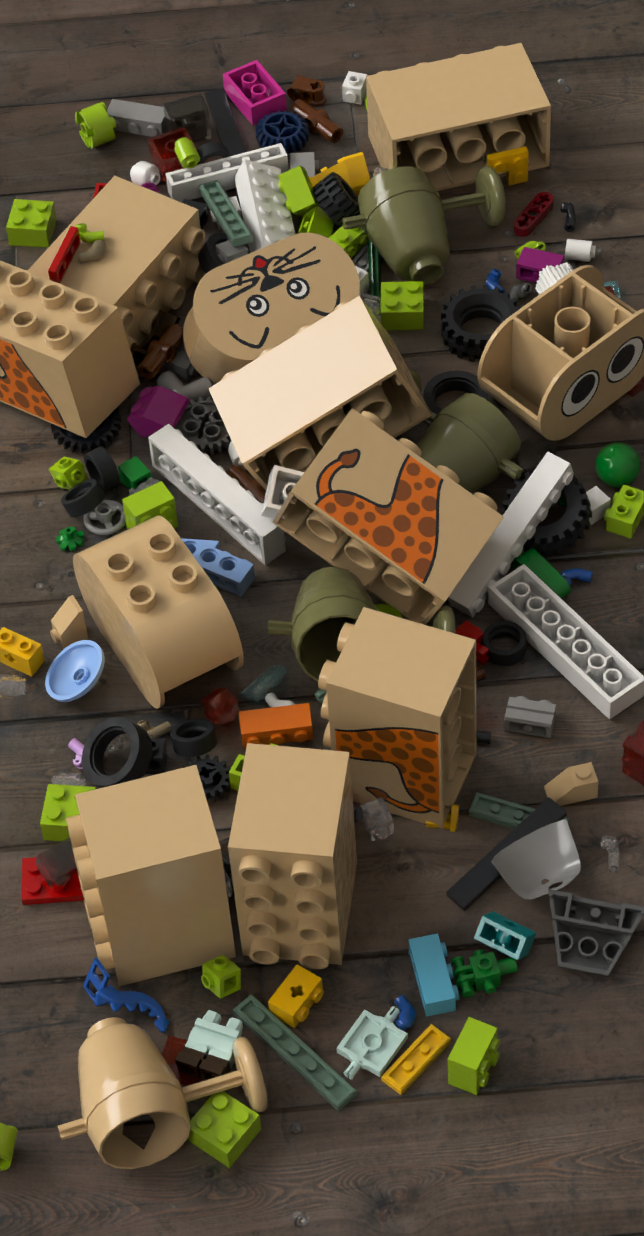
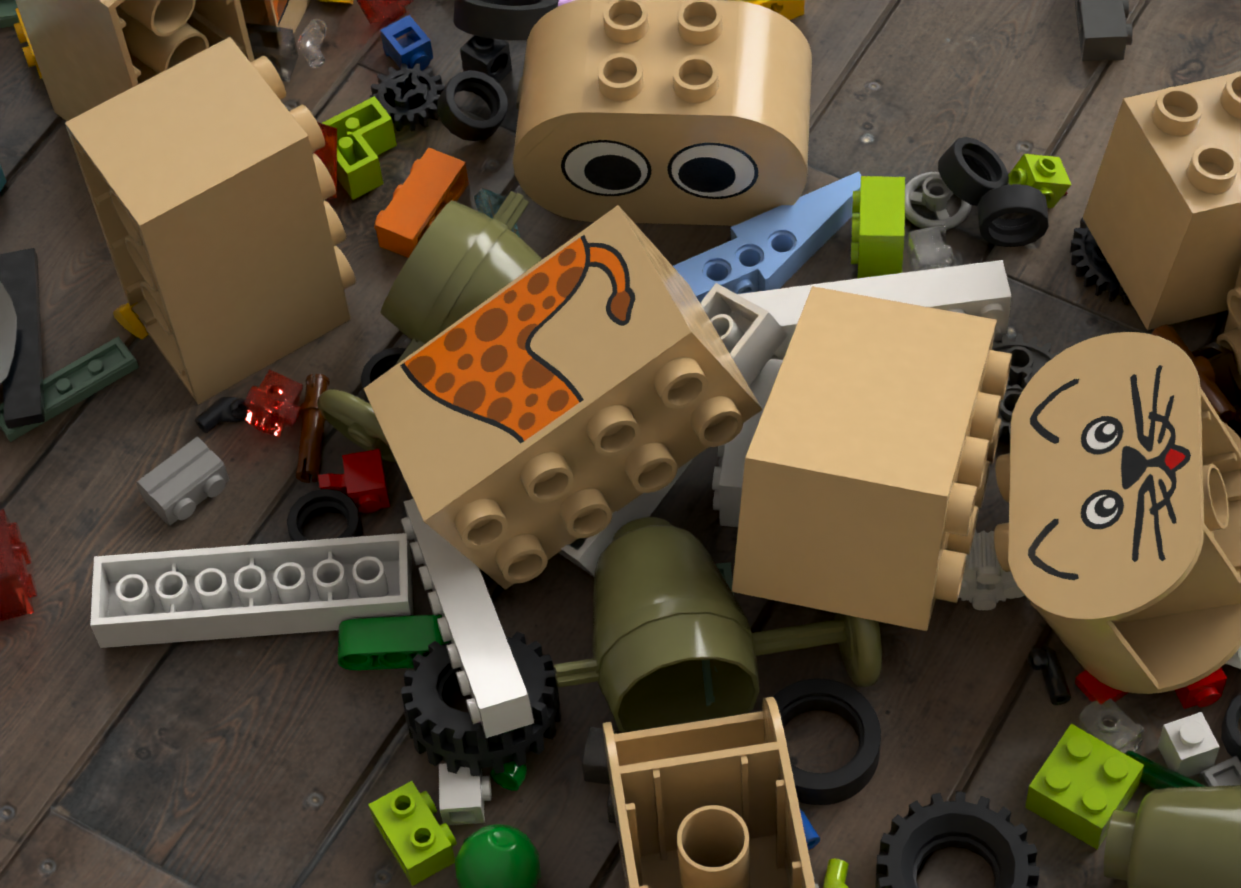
camera: 125 degrees right, 5 degrees up
(70, 538) = (926, 146): green plant -> none
(133, 473) = (980, 249): green brick -> none
(156, 409) = (1070, 318): magenta slope -> none
(220, 706) = (493, 155): clear red brick -> none
(573, 785) = (40, 467): tan slope -> none
(578, 574) = (367, 691): blue arm -> none

